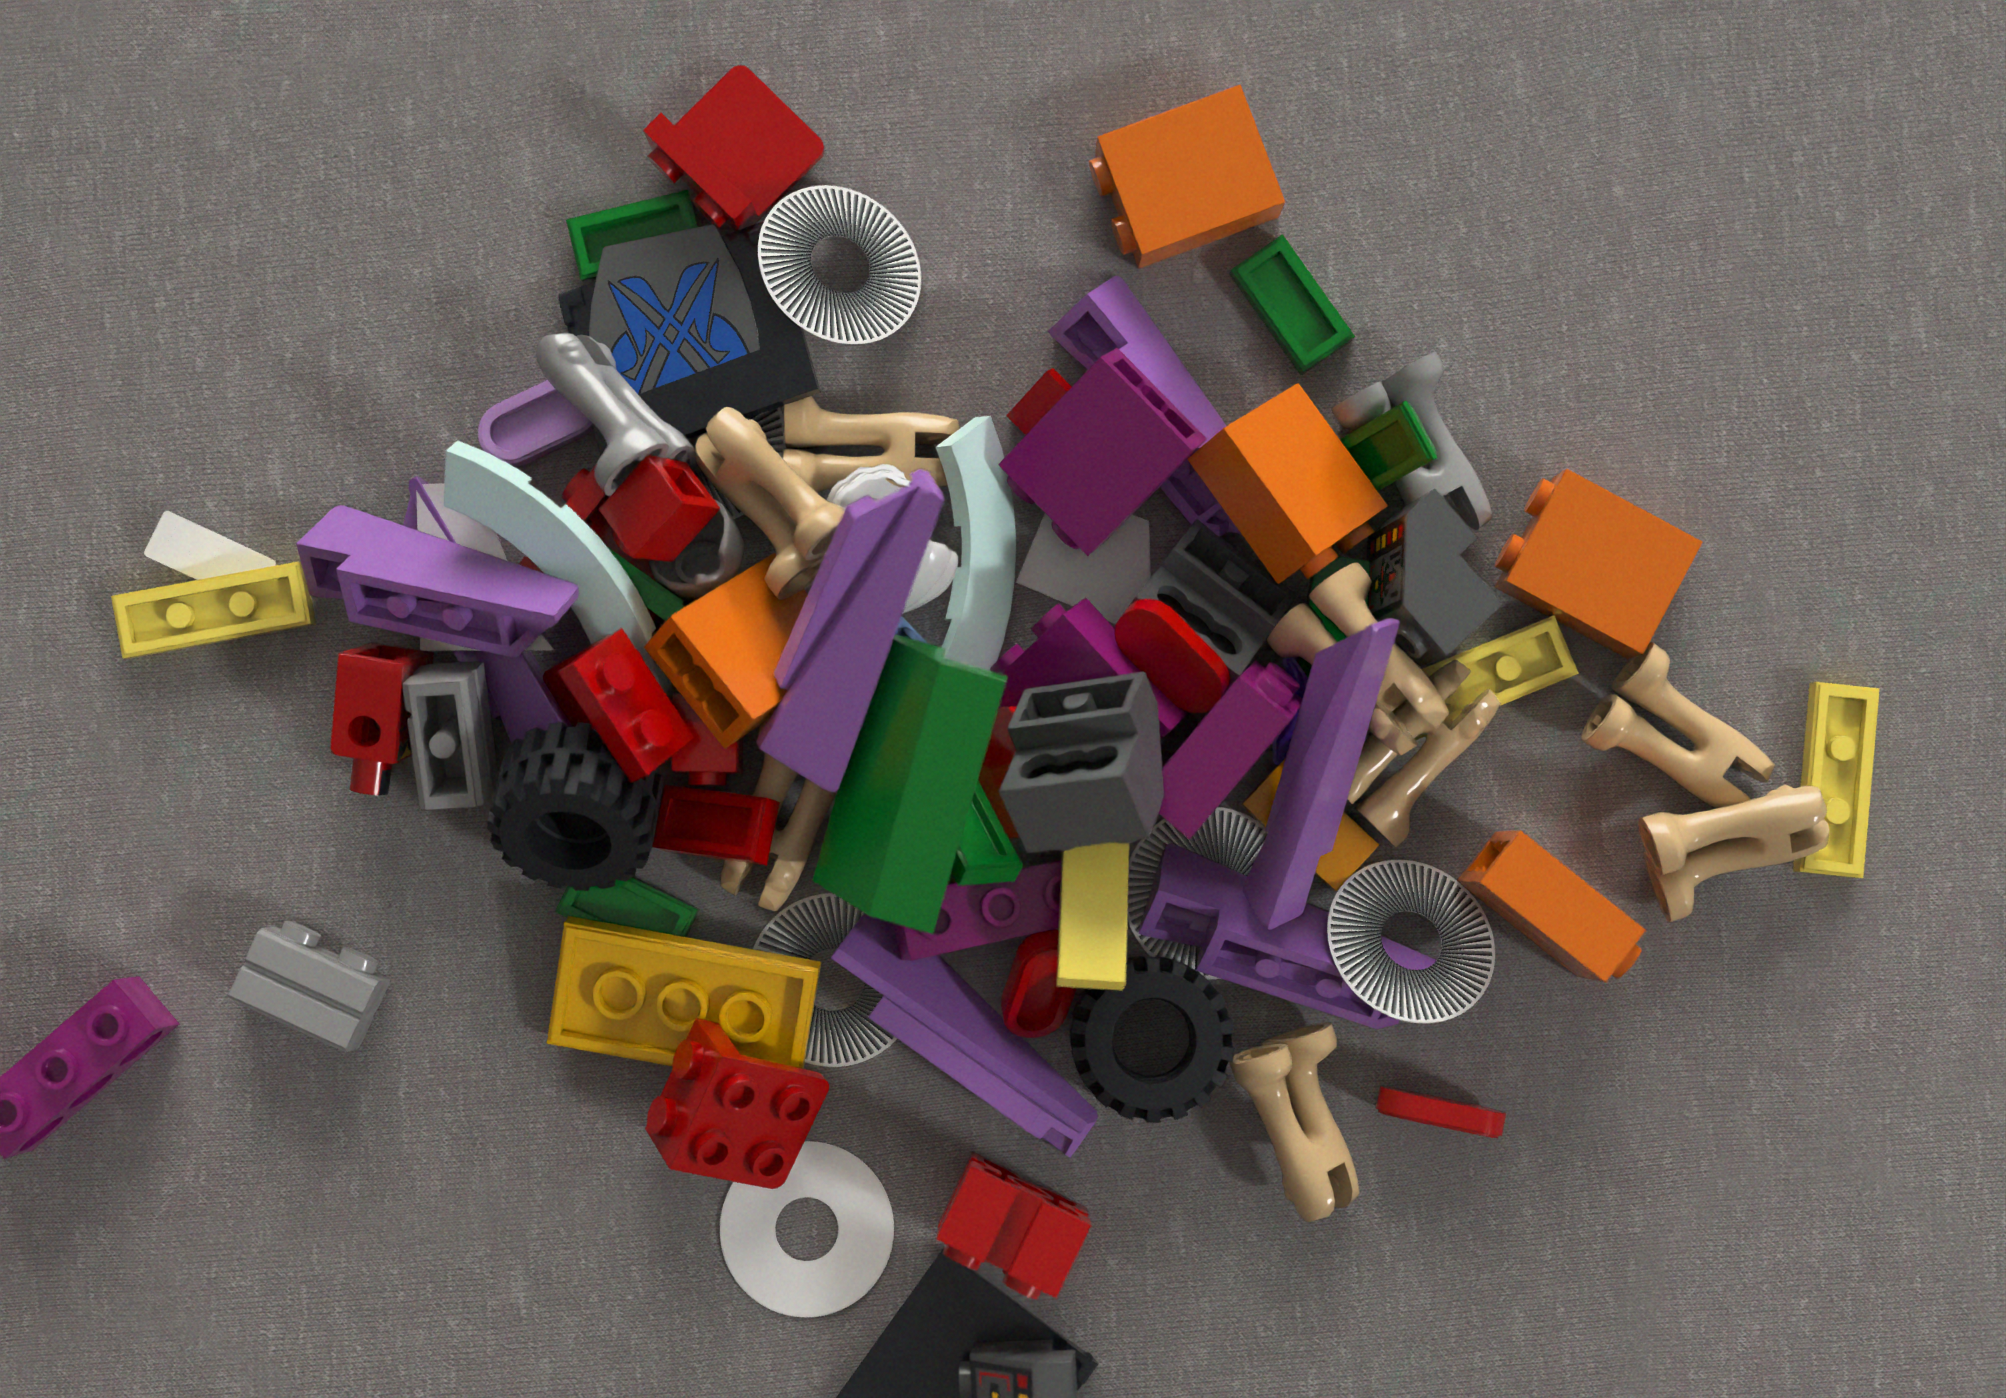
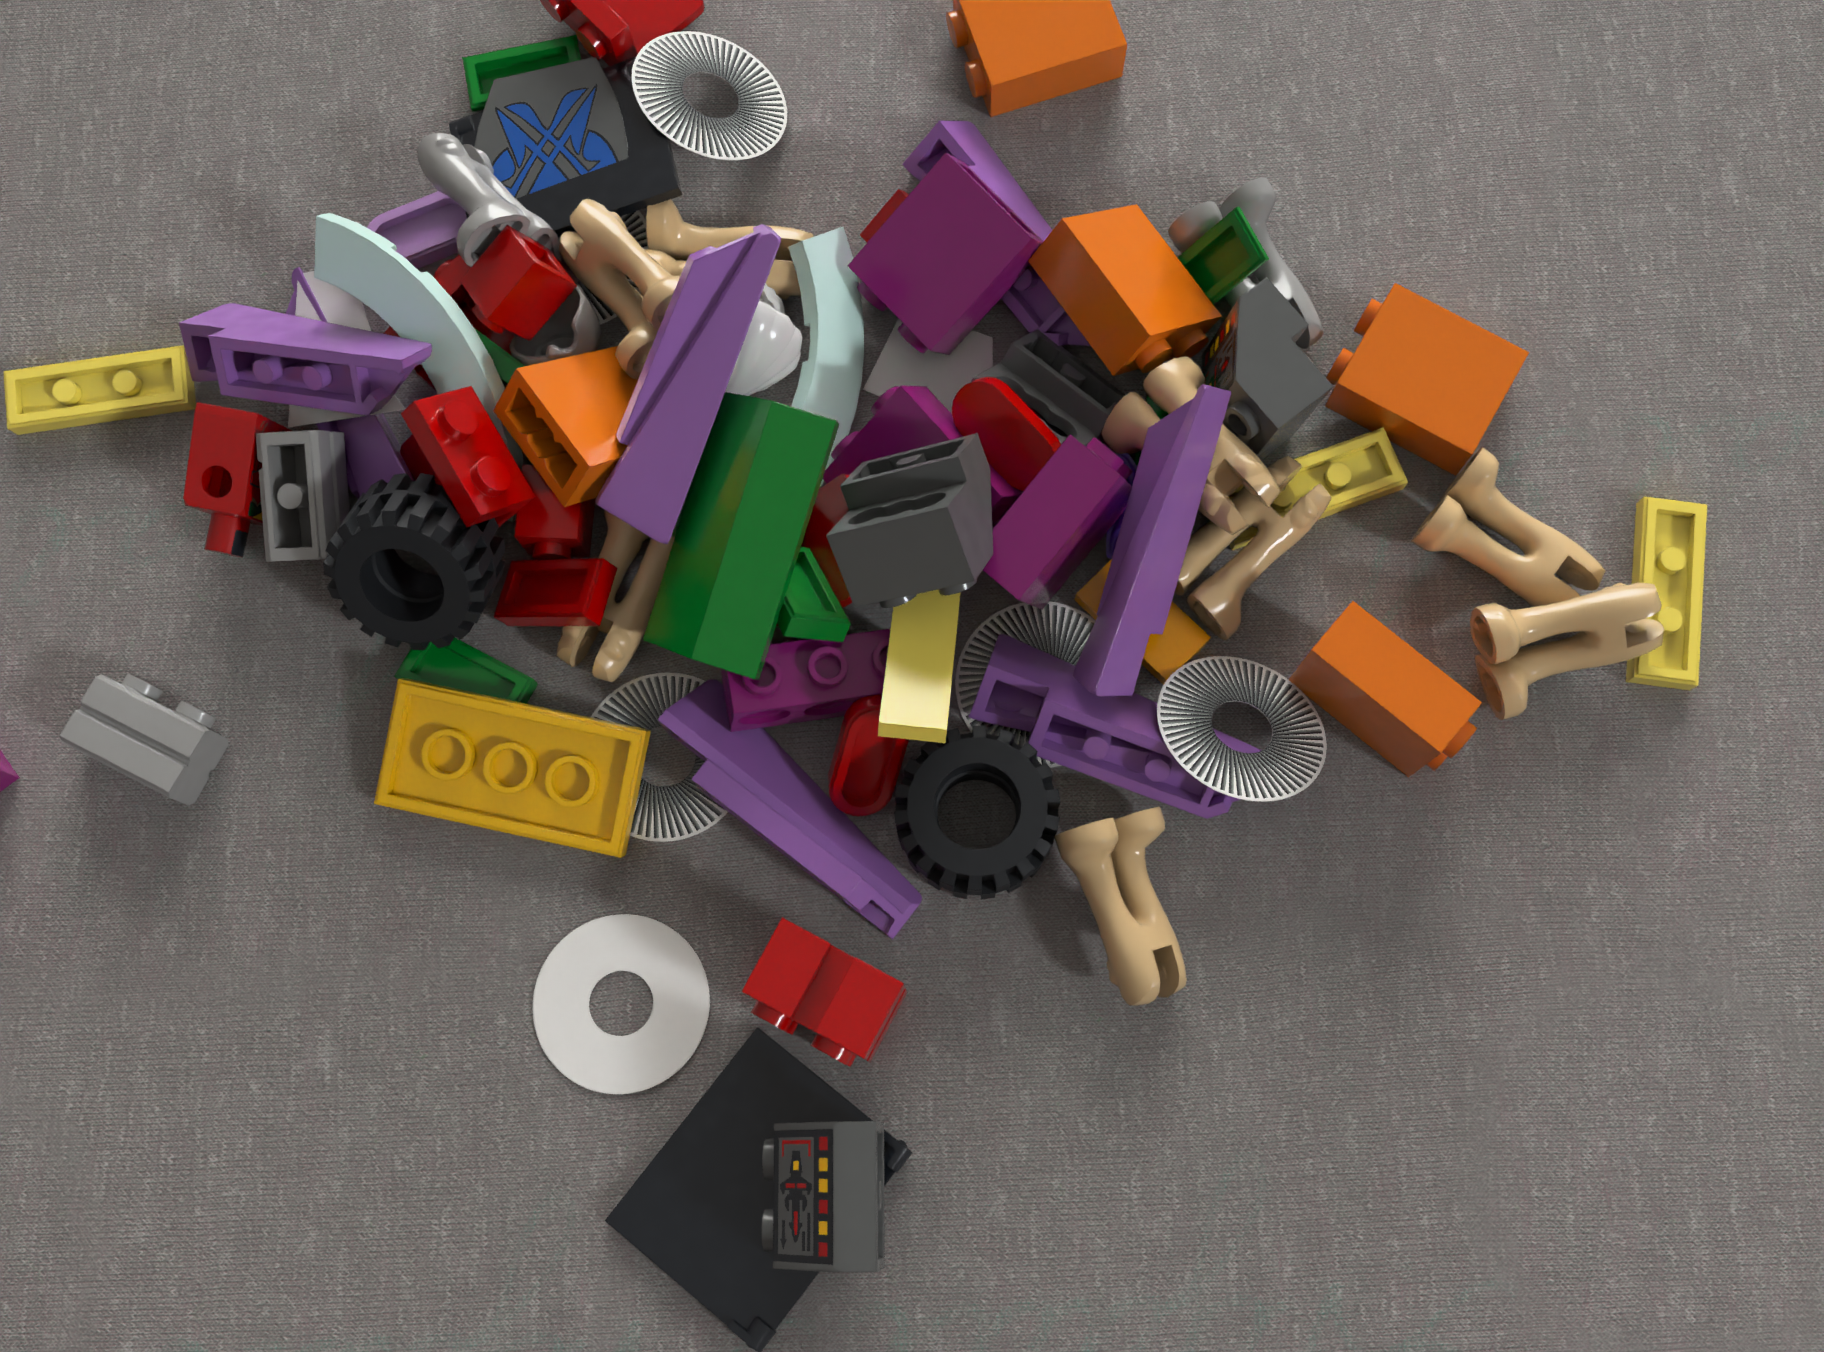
camera: 10 degrees right, 10 degrees down
(199, 550) = (88, 335): white sticker -> none
(732, 1111) = (553, 872): red bracket -> none
(1291, 304) = (1133, 148): green tile -> none
(1440, 1112) = (1271, 900): red tile -> none

